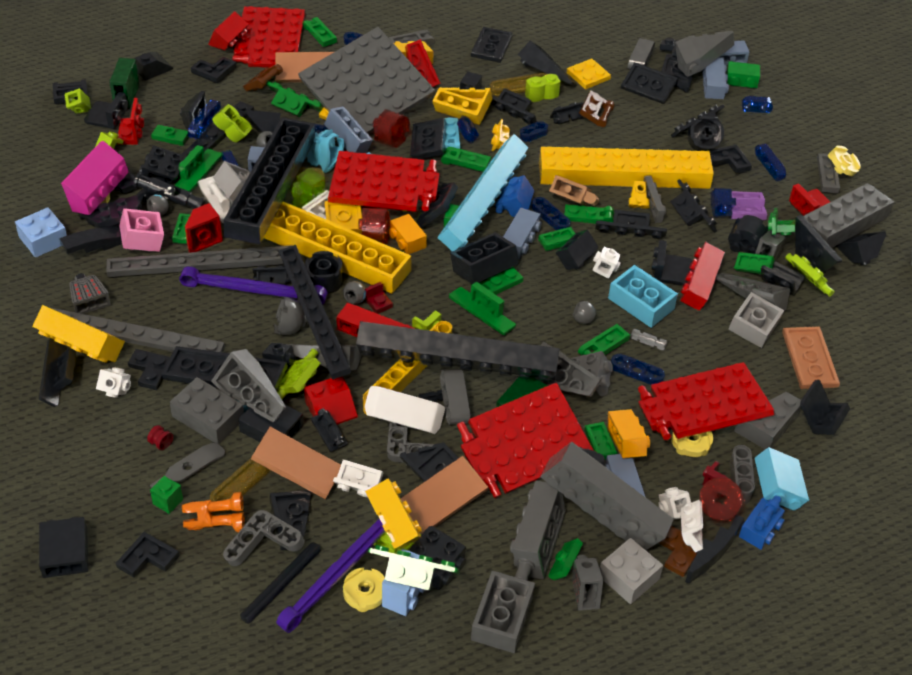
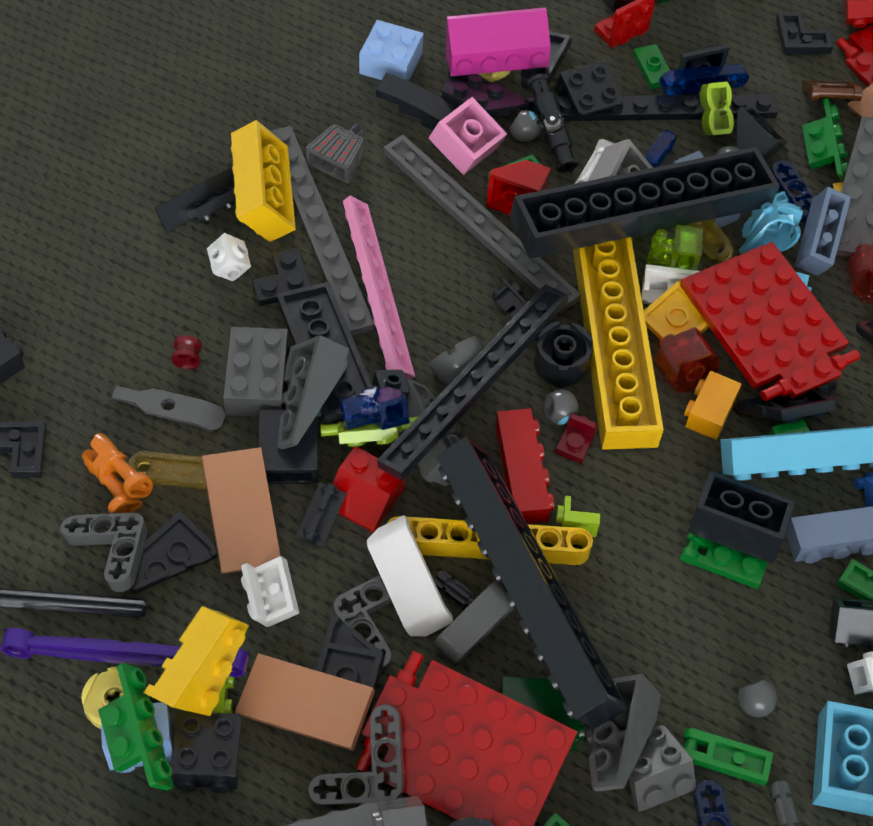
camera: 55 degrees right, 10 degrees up
(110, 138) = (578, 17): lime bracket -> none
(166, 494) = (108, 409): green brick -> none
(192, 326) = (378, 287): none -> bright pink plate
(196, 167) = (617, 122): green bracket -> none
(242, 284) = (444, 228): dark purple piece -> none
(294, 357) = (376, 405): none -> clear blue brick
(484, 306) = (662, 569): green bracket -> none
(511, 487) = (371, 779): none -> dark grey beam

